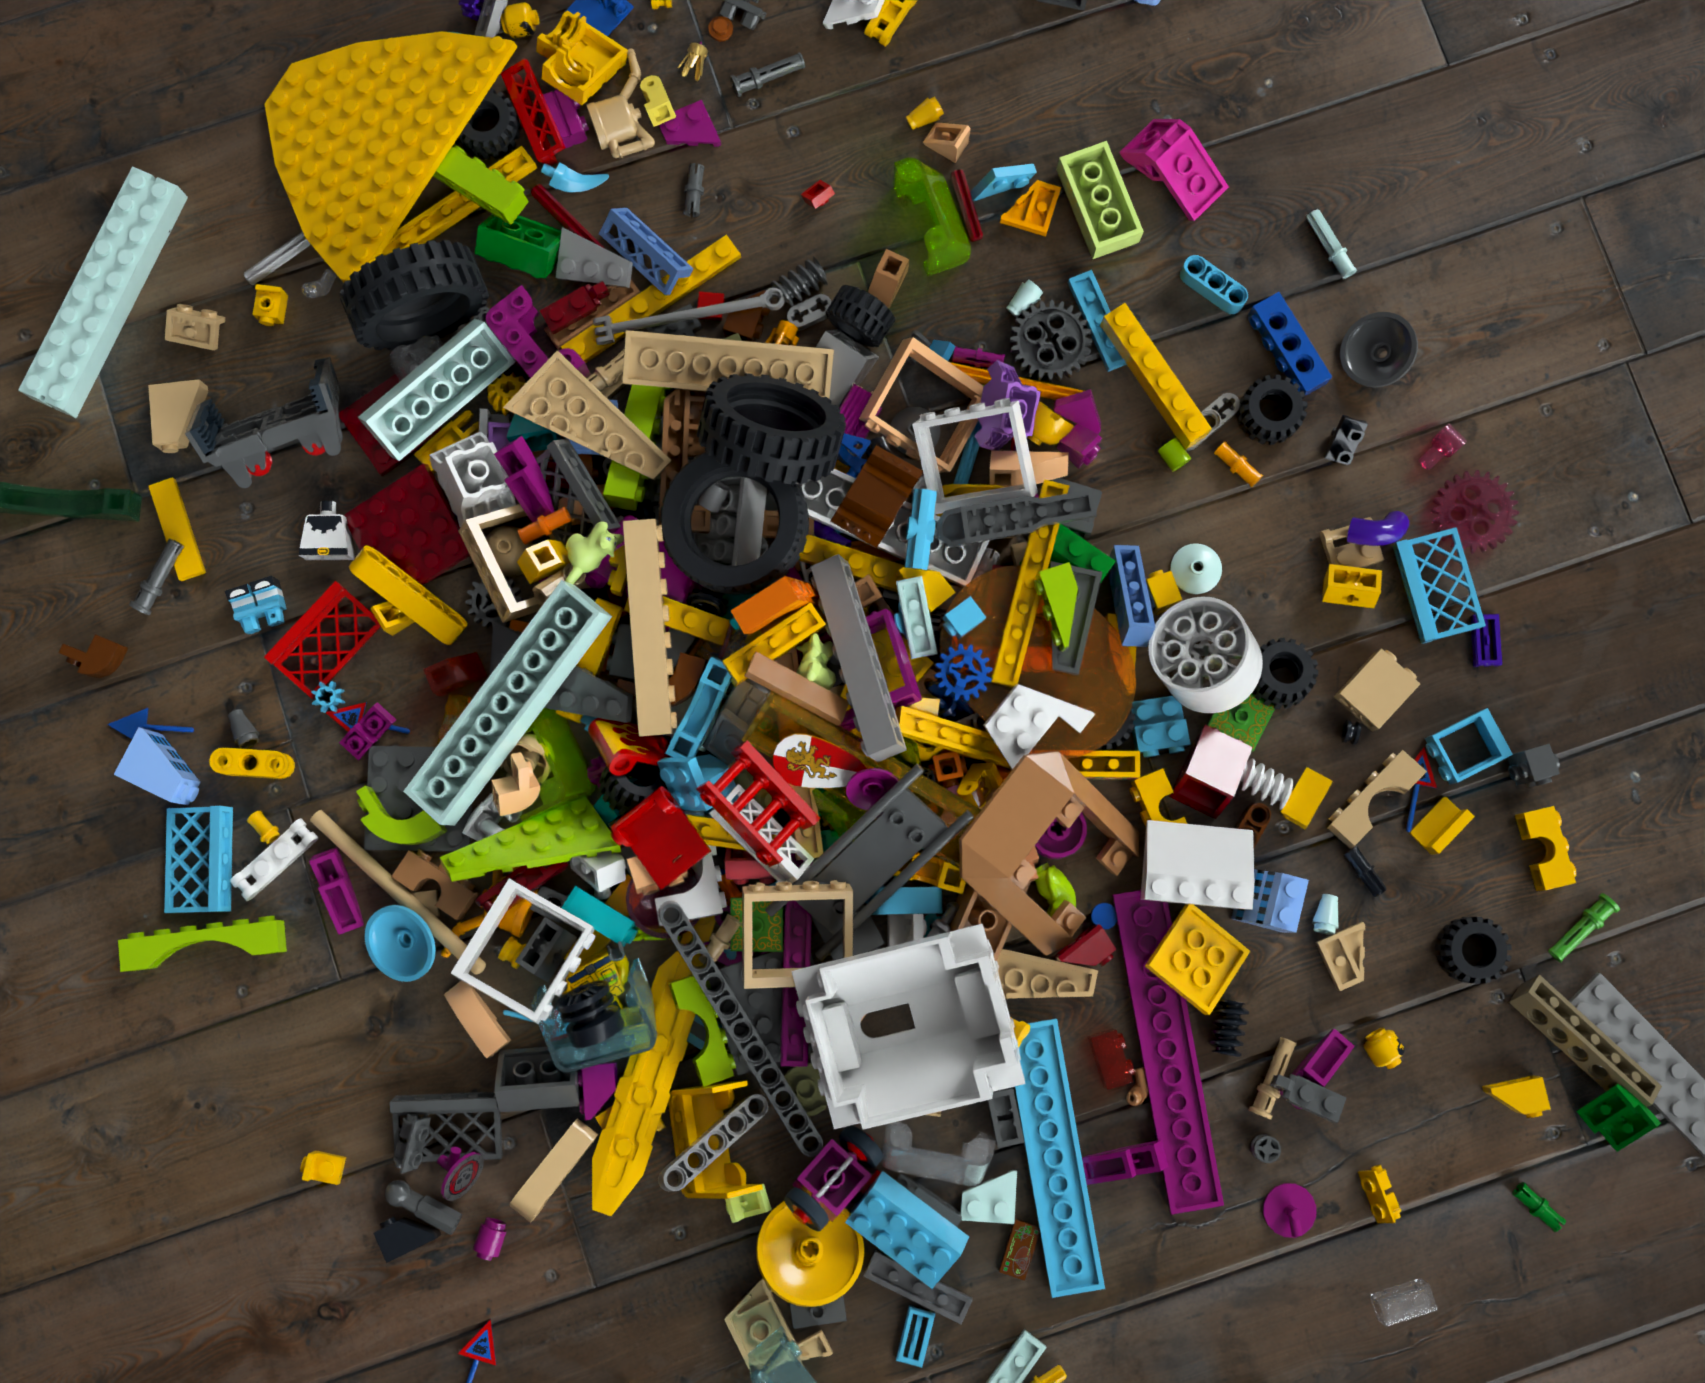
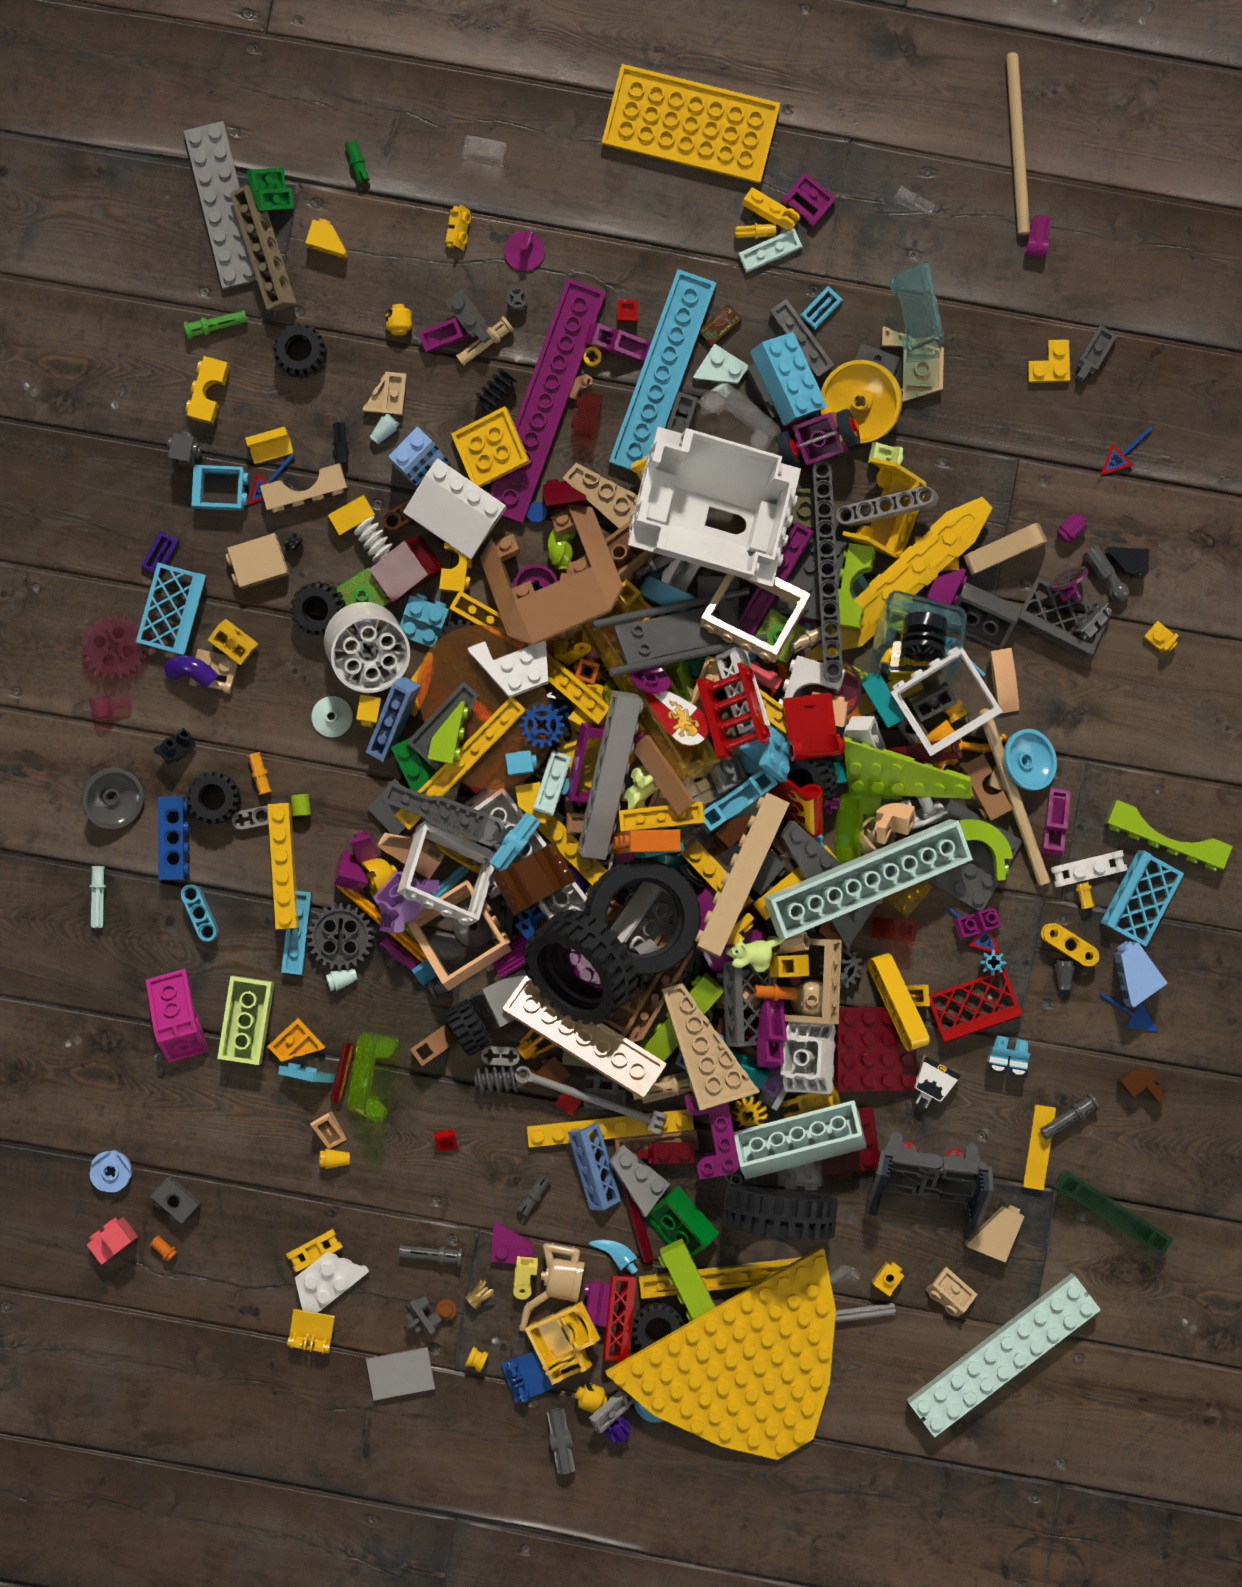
camera: 150 degrees left, 5 degrees up
(1134, 1206) = (627, 311): none -> red plate
(1152, 1133) = (587, 360): none -> yellow bush

